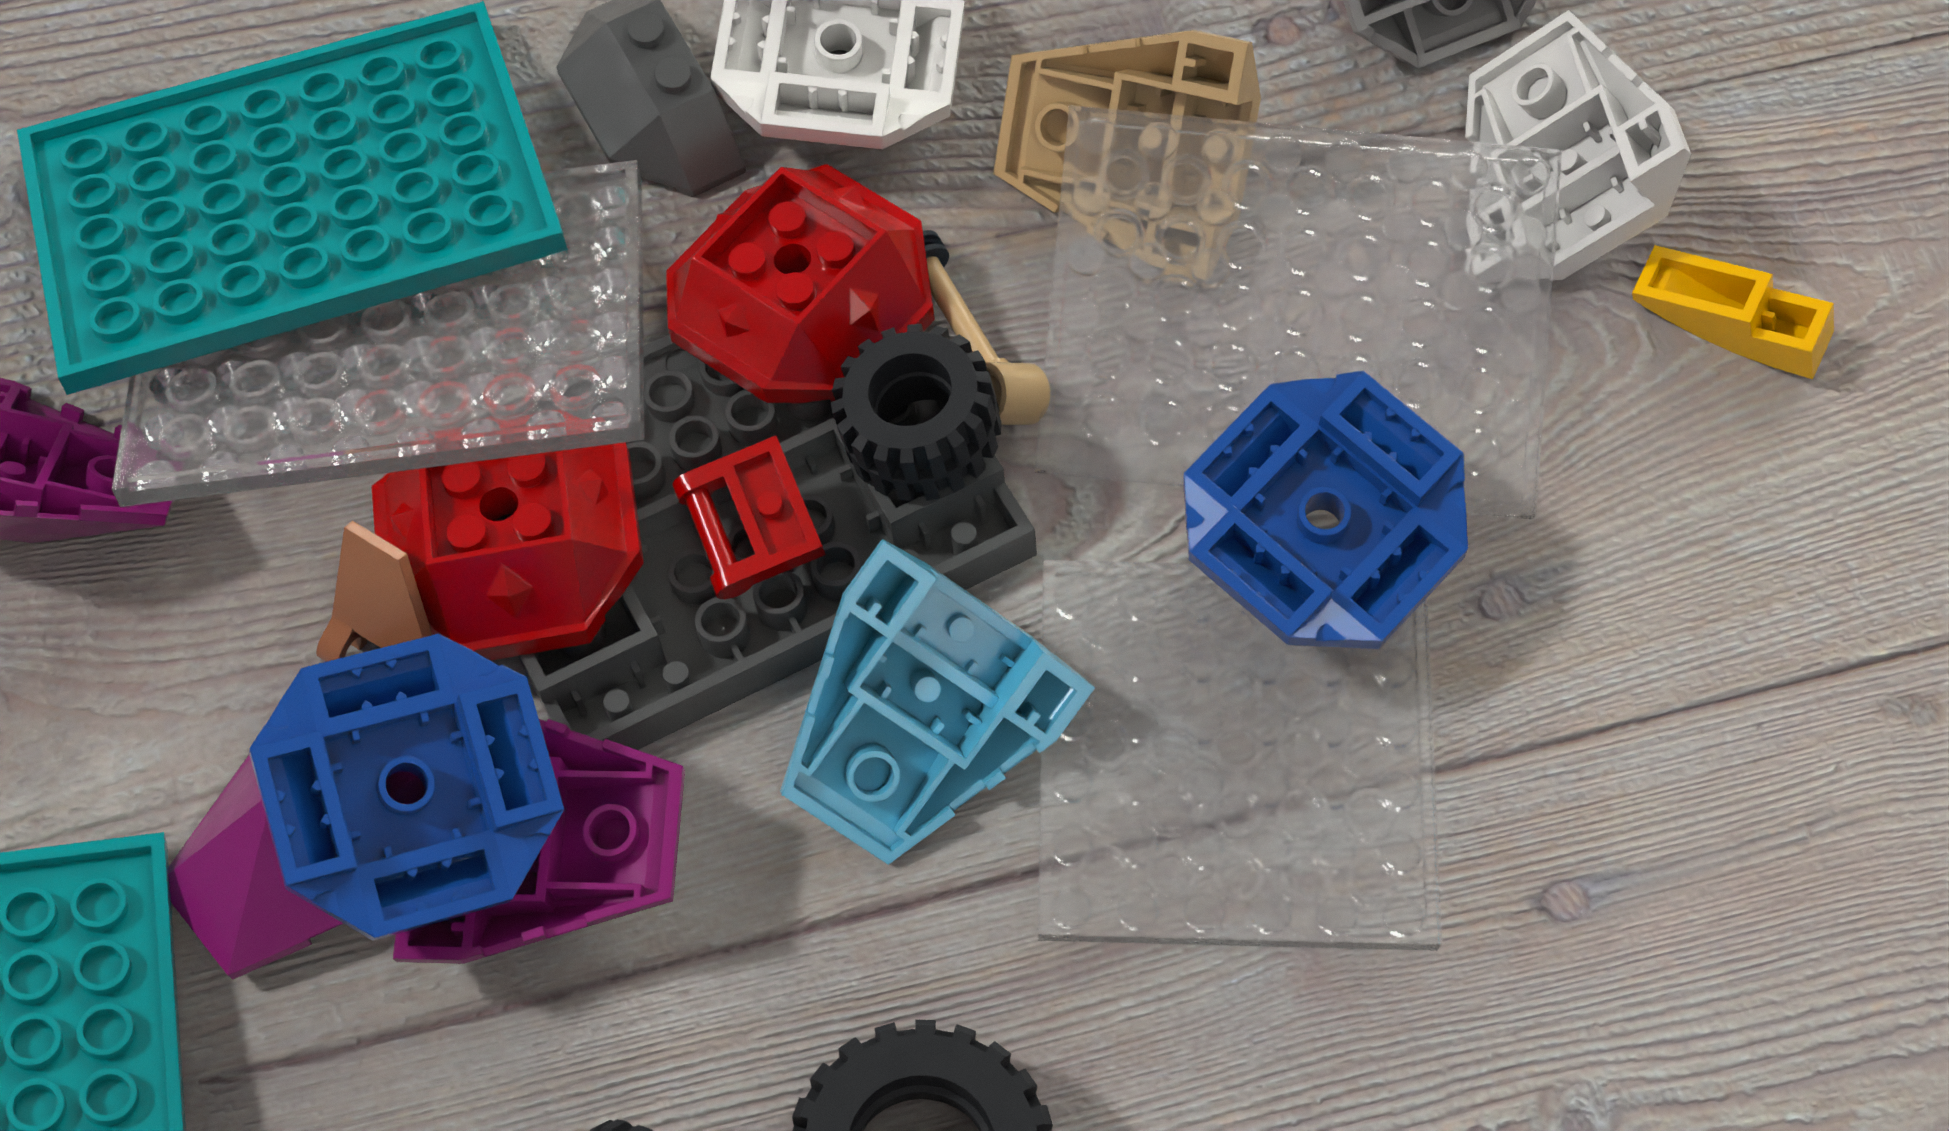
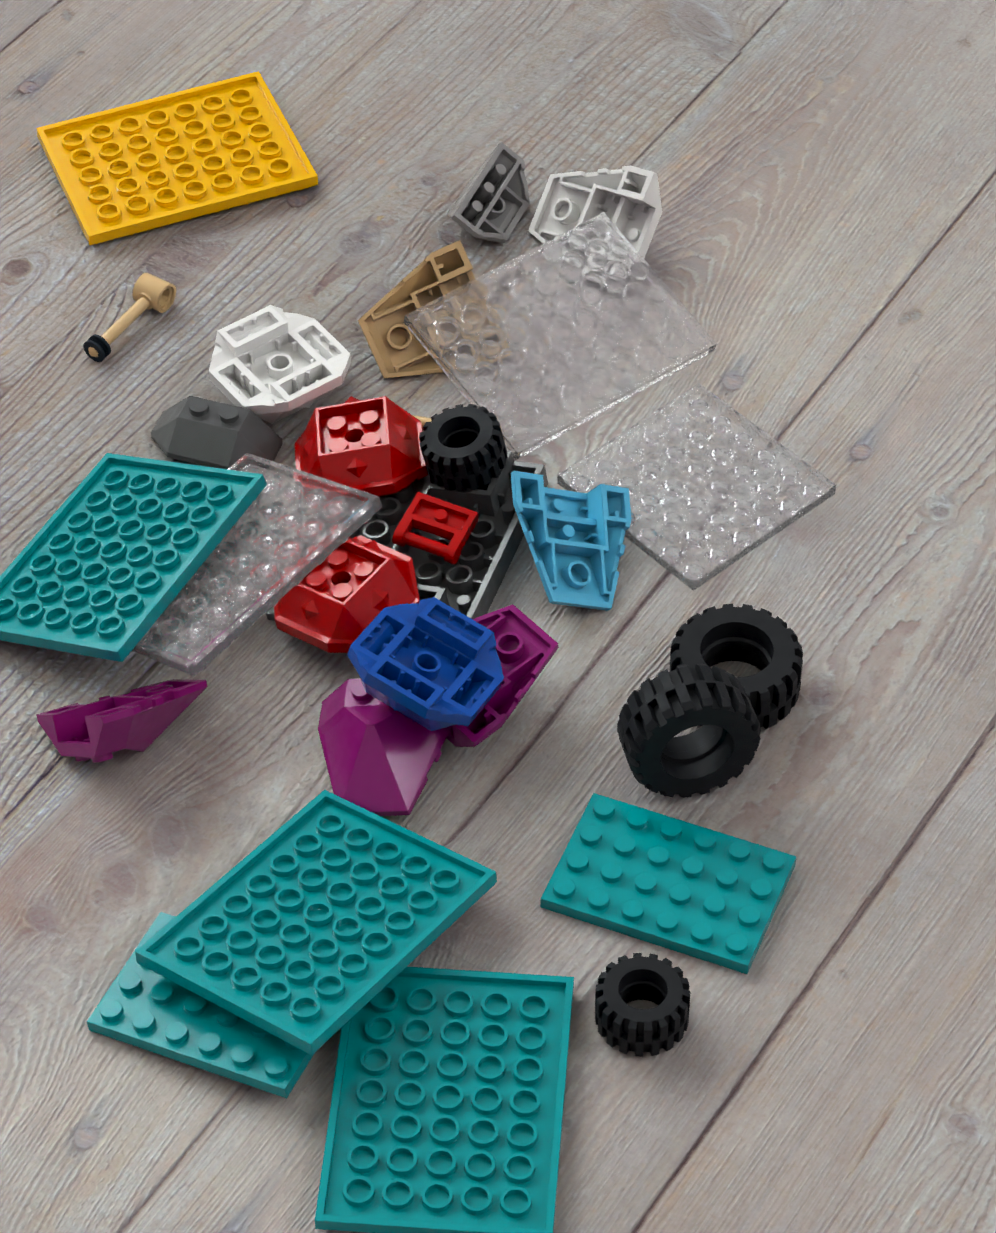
camera: 40 degrees left, 20 degrees down
(373, 597) = (326, 644): nougat flag -> none
(1341, 451) = (650, 371): blue piece -> none
(1737, 310) = (713, 235): yellow slope -> none

